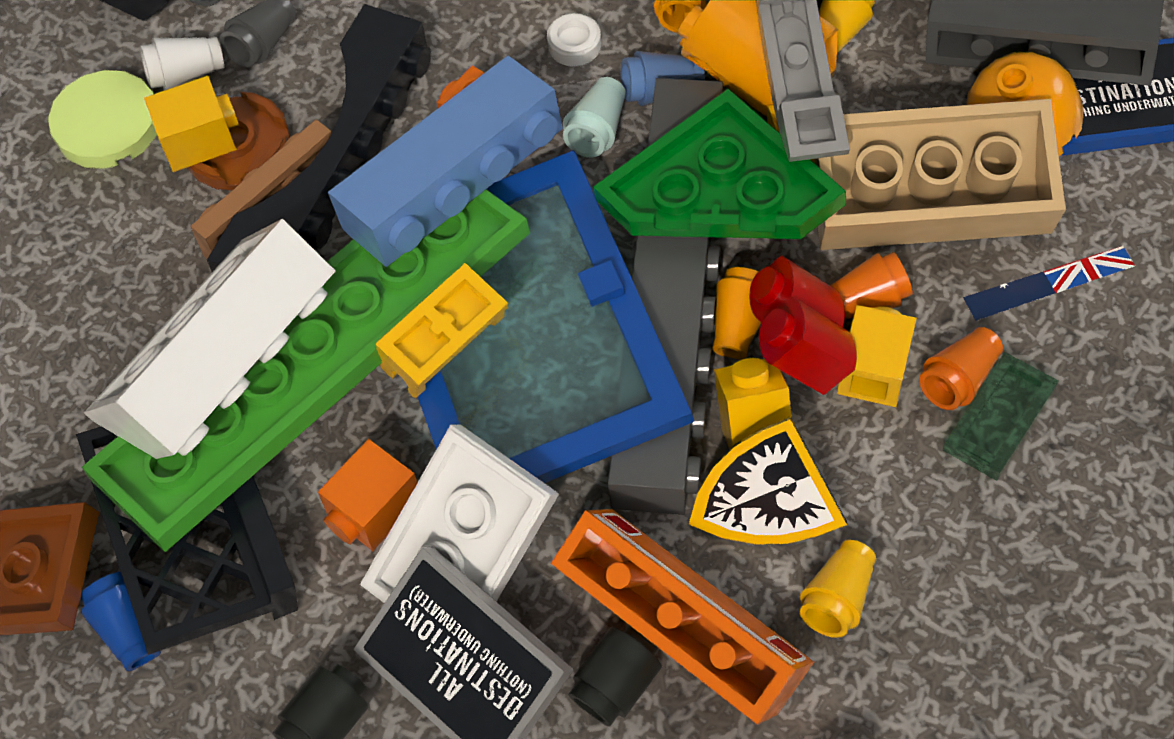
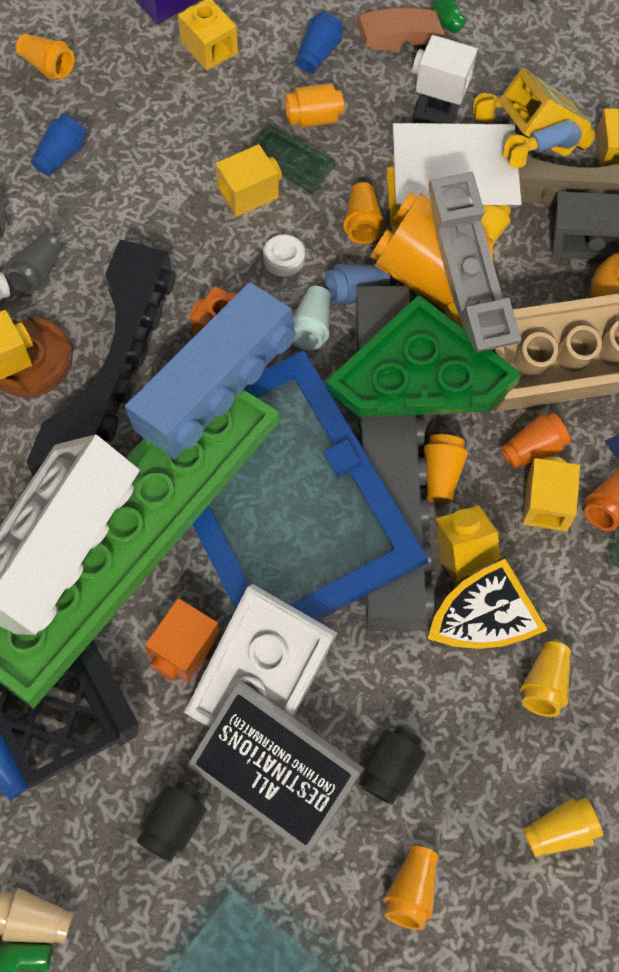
camera: 15 degrees left, 5 degrees up
(261, 184) = (59, 395): medium nougat plate -> none
(440, 328) = (226, 507): yellow hinge -> none
(682, 614) = (438, 714): orange brick -> none
(802, 325) = (497, 478): red brick -> none

